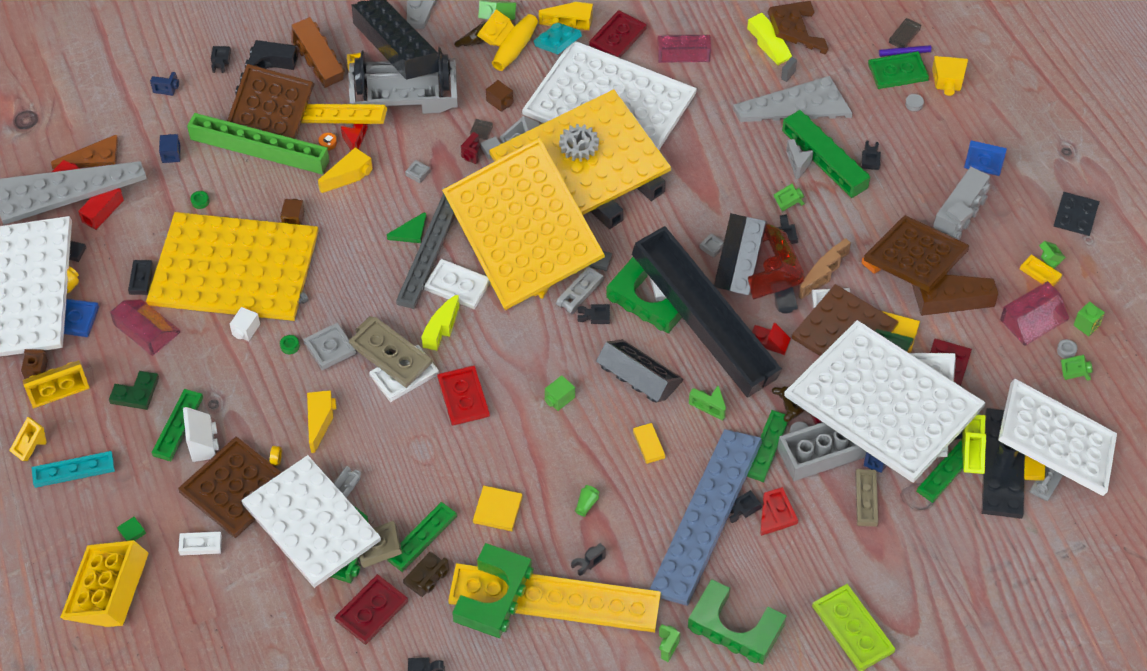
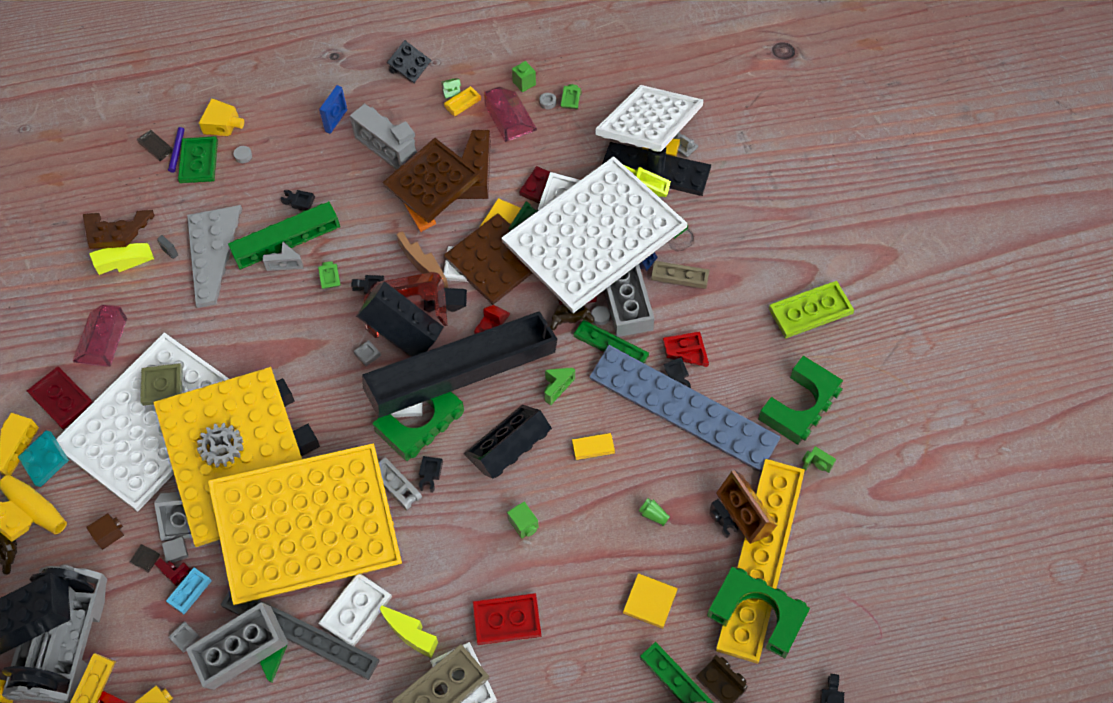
camera: 80 degrees left, 5 degrees up
(409, 202) = (236, 646): none -> light grey brick
(456, 164) = (188, 591): none -> medium azure plate
(597, 569) = (745, 508): none -> dark orange slope
(640, 96) = (160, 382): none -> olive plate

